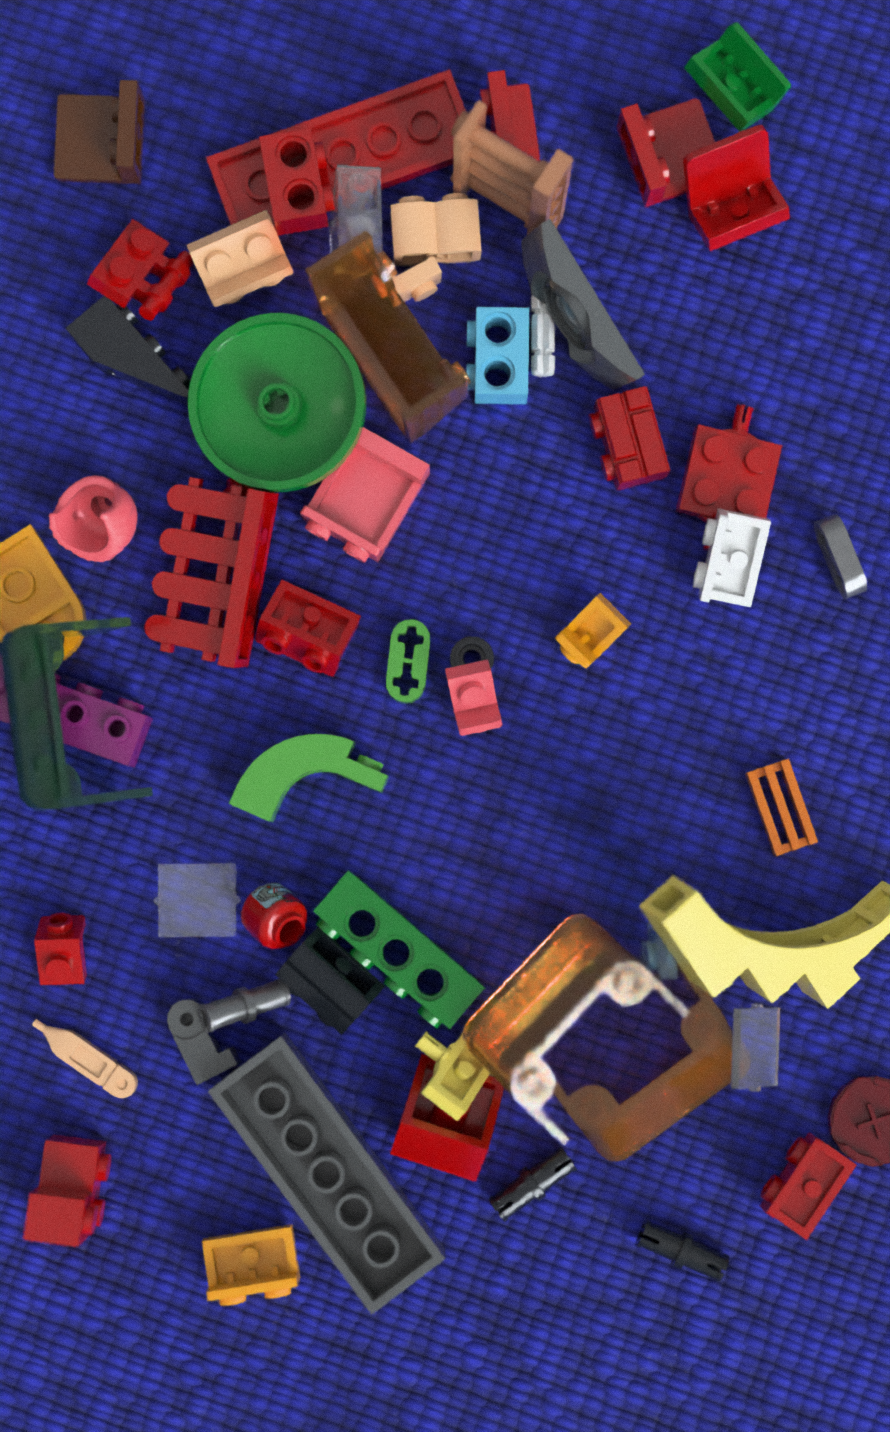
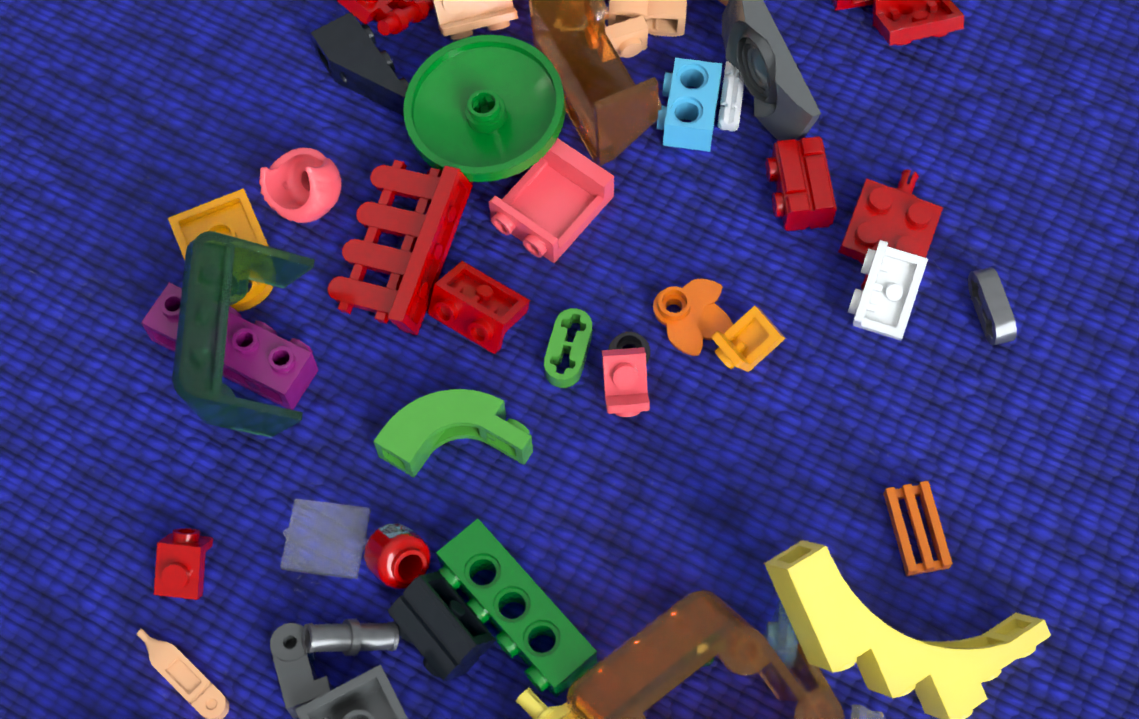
camera: 10 degrees right, 20 degrees down
(538, 607) = (698, 314): none -> orange plate

